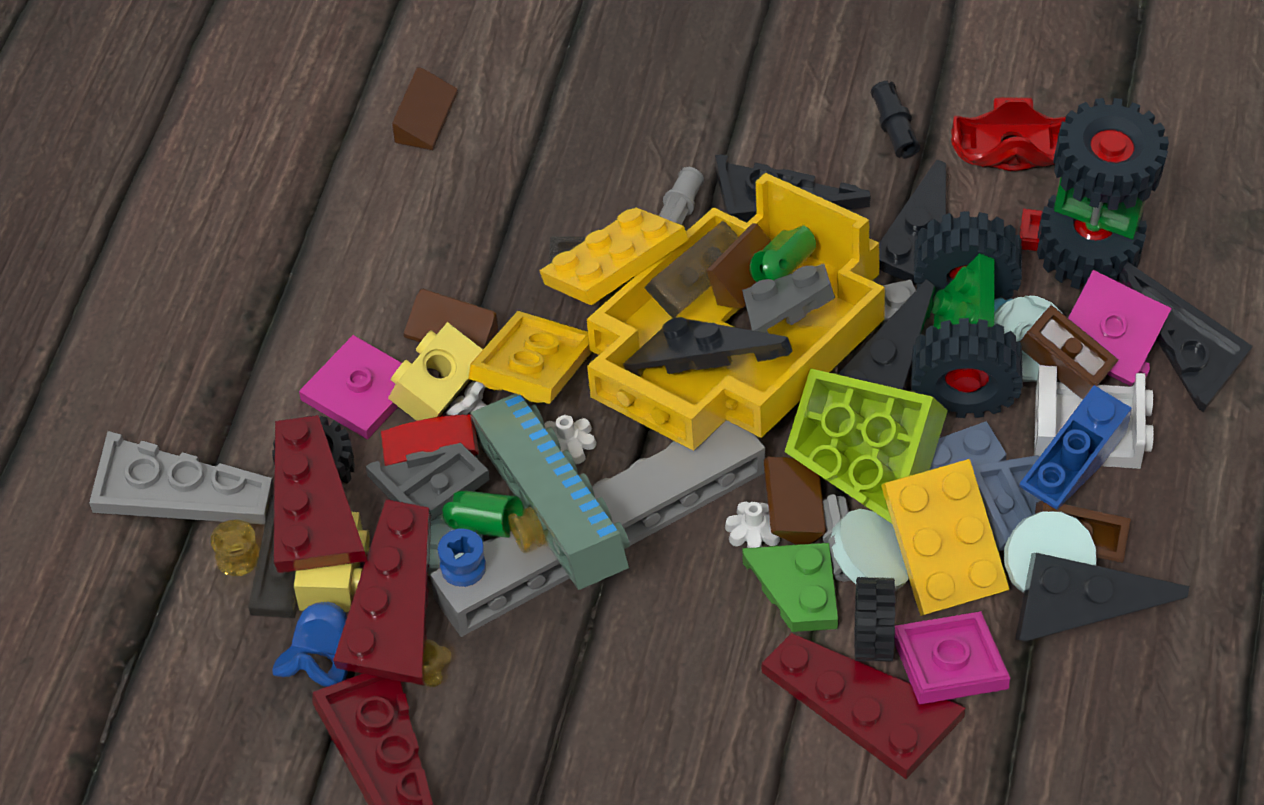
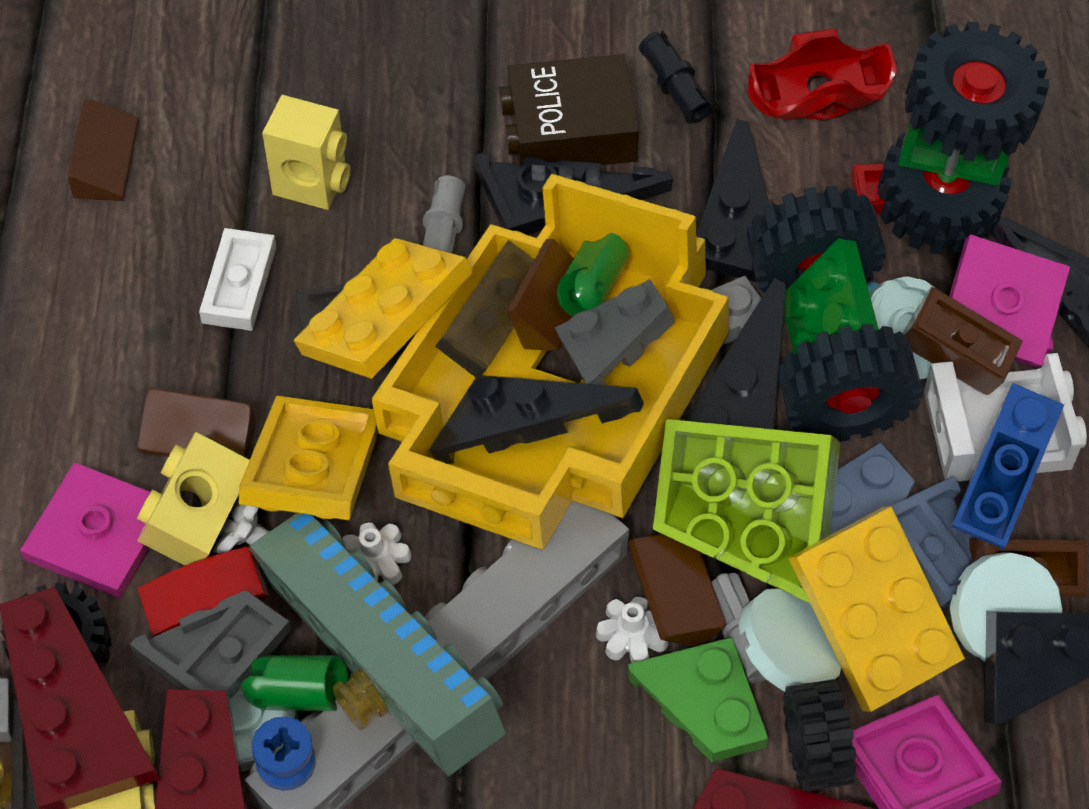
camera: 15 degrees left, 5 degrees up
(507, 221) = (238, 279): none -> white plate
(580, 132) = (306, 152): none -> light yellow brick
(802, 132) = (571, 111): none -> dark brown brick

